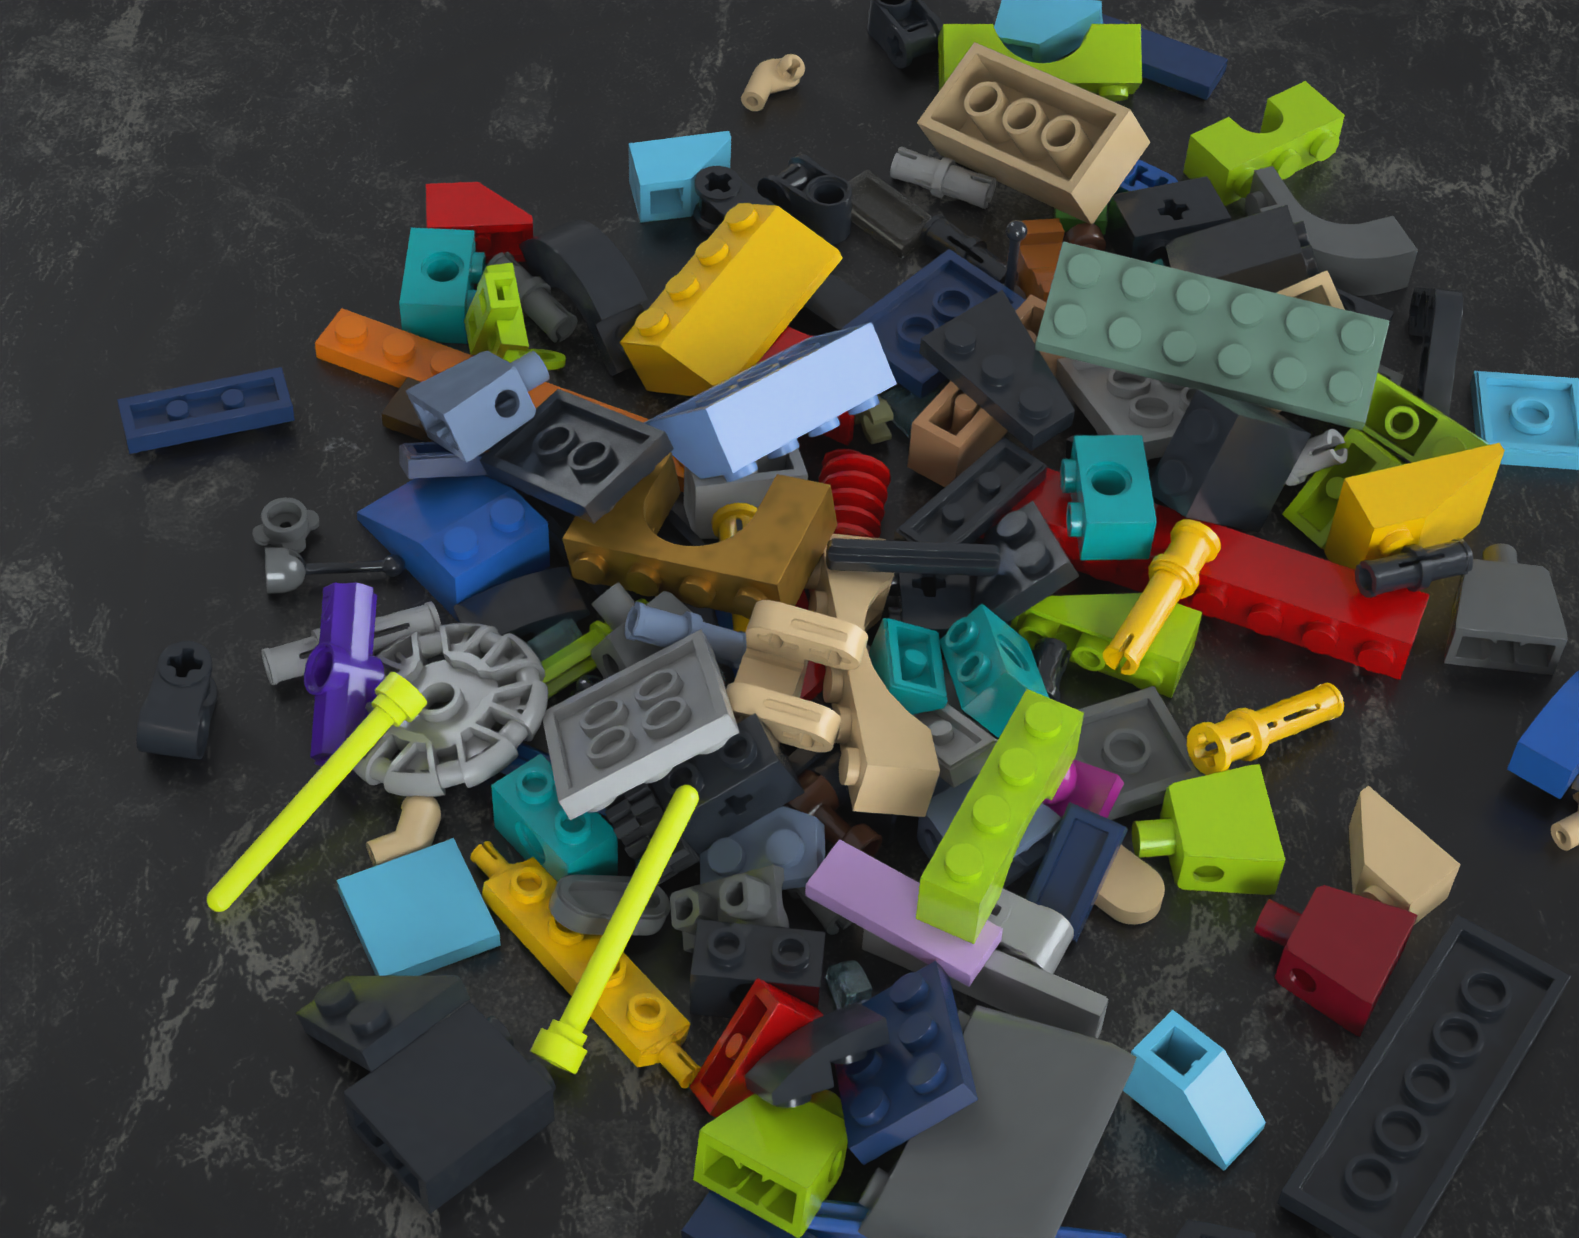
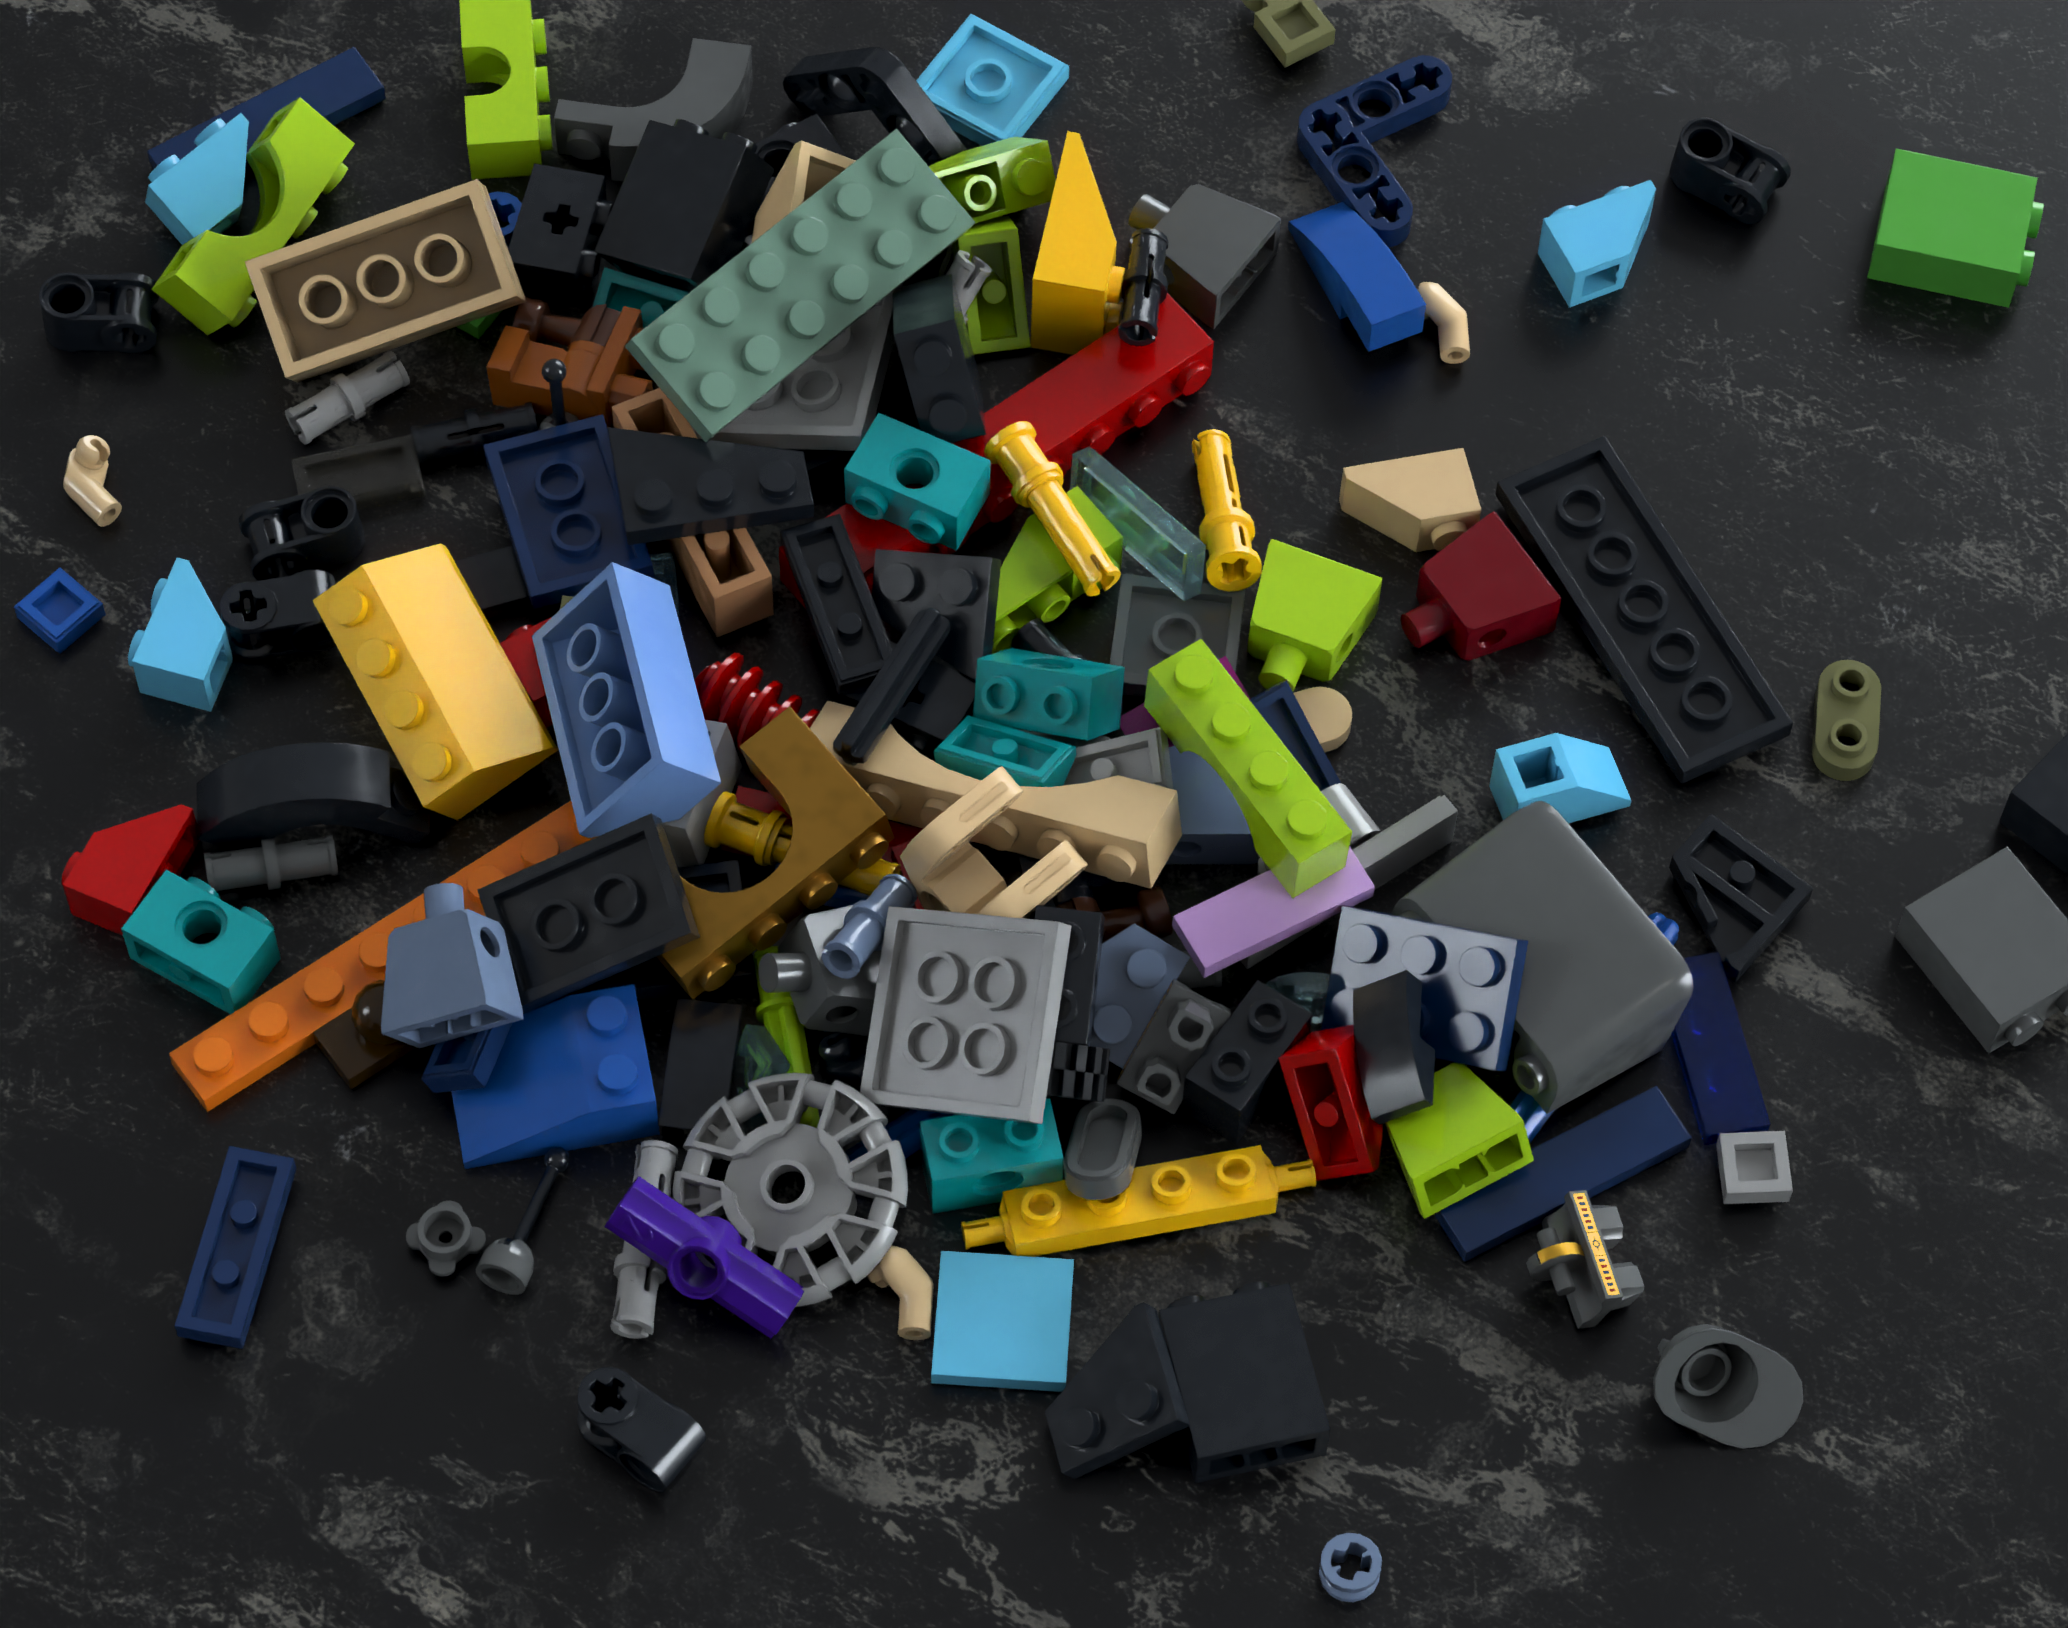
camera: 60 degrees left, 10 degrees up
(394, 703) = (785, 1224): neon yellow piece -> none
(497, 319) = (324, 901): lime piece -> none
(564, 1038) = (1224, 1254): neon yellow piece -> none
(659, 111) = (59, 610): none -> blue tile
(1202, 671) = (1147, 529): none -> clear light blue tile

